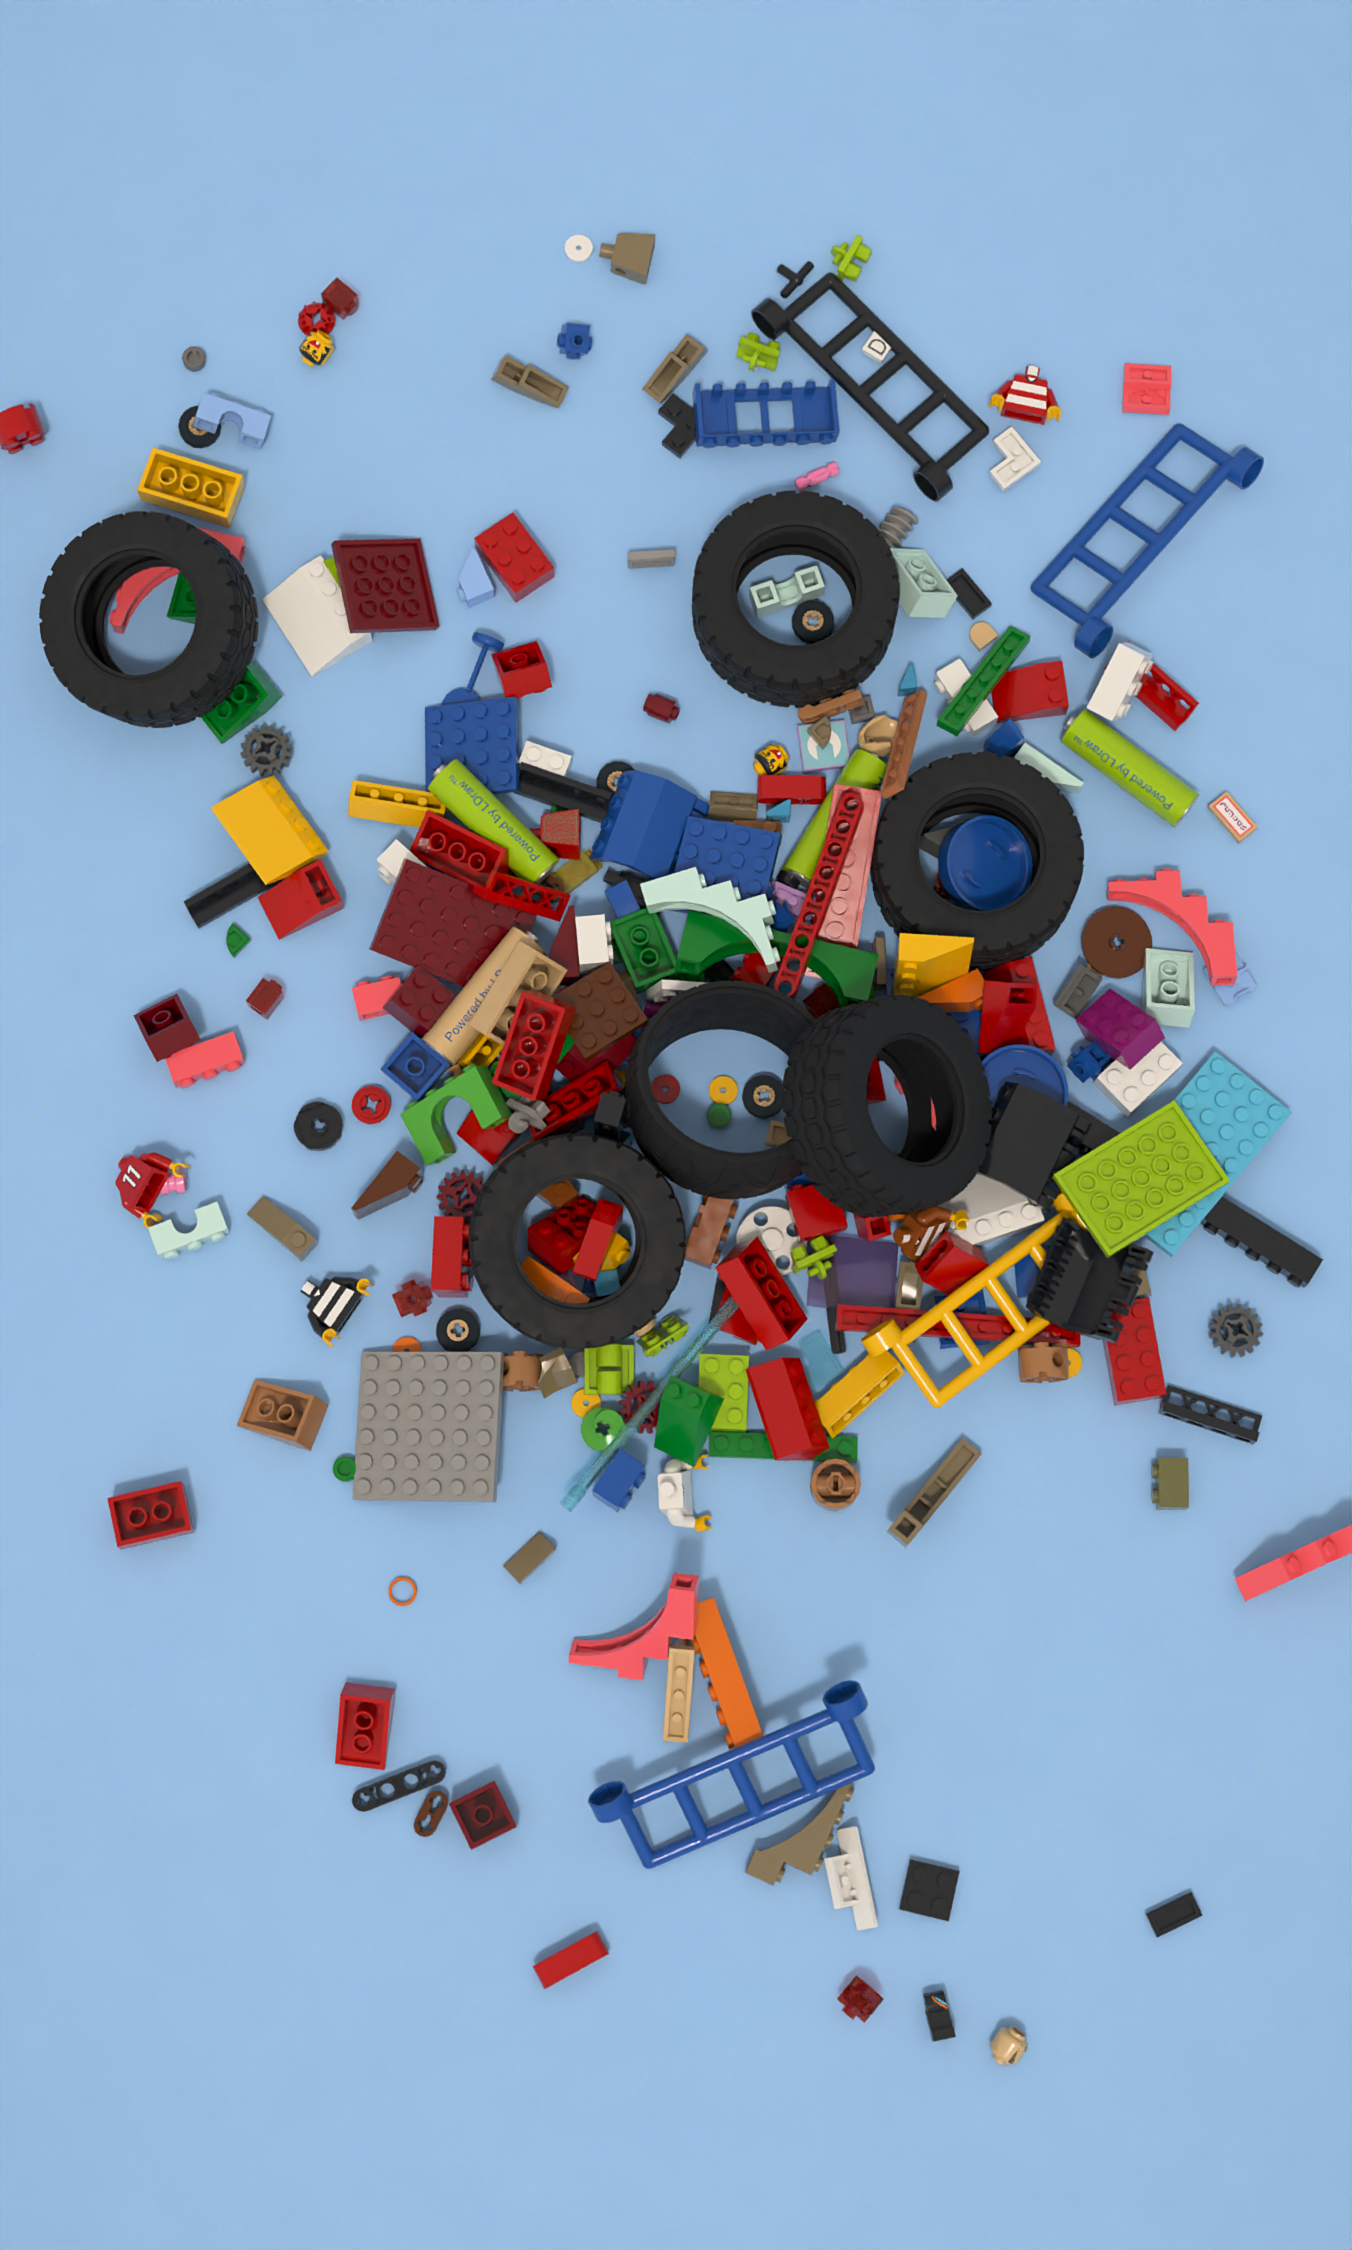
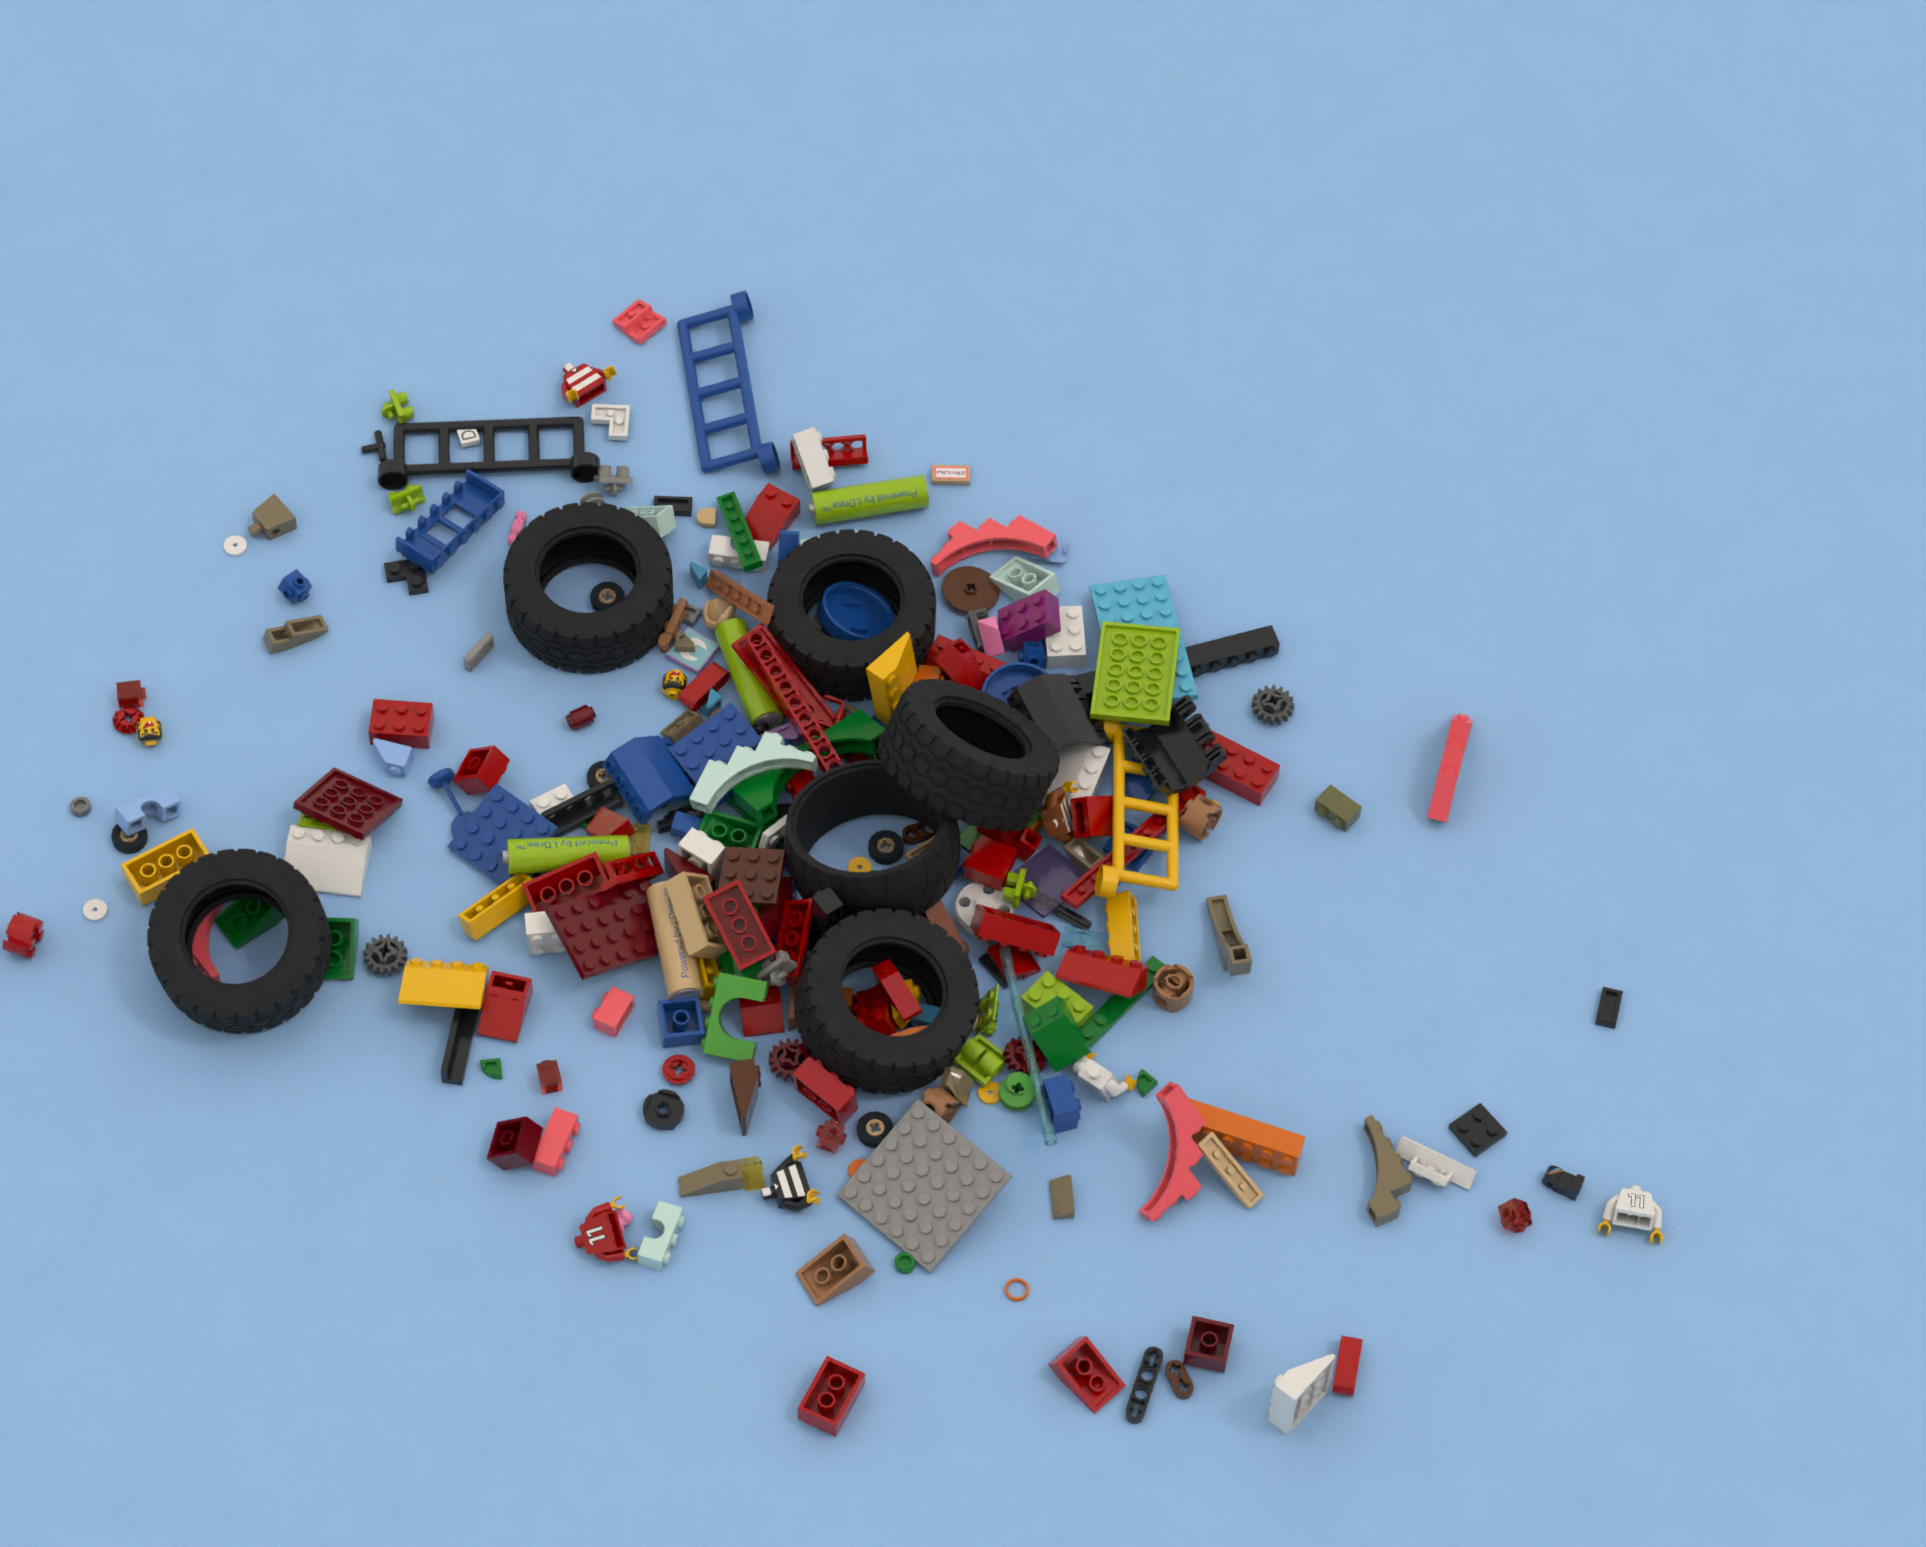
camera: 50 degrees left, 20 degrees down
(104, 456) = (97, 915): none -> white wheel
(320, 1256) = (752, 1173): none -> clear yellow bracket
(419, 1001) = (640, 983): dark red brick -> none
(482, 1944) = (1299, 1392): none -> white slope
(674, 369) = (369, 549): dark tan slope -> none
(716, 1537) = (1145, 1083): none -> green tile
(802, 587) = (580, 587): light aqua arch -> none
(842, 1705) = (1271, 1247): blue fence -> none
(860, 940) = (840, 712): none -> red piece
(941, 518) = (604, 476): none -> light grey hips
(961, 2110) = (1634, 1210): none -> white torso
(1009, 2045) = (1615, 1155): tan head -> none
(1071, 1008) = (991, 636): none -> bright pink slope
(1210, 1422) = (1314, 762): black fence -> none

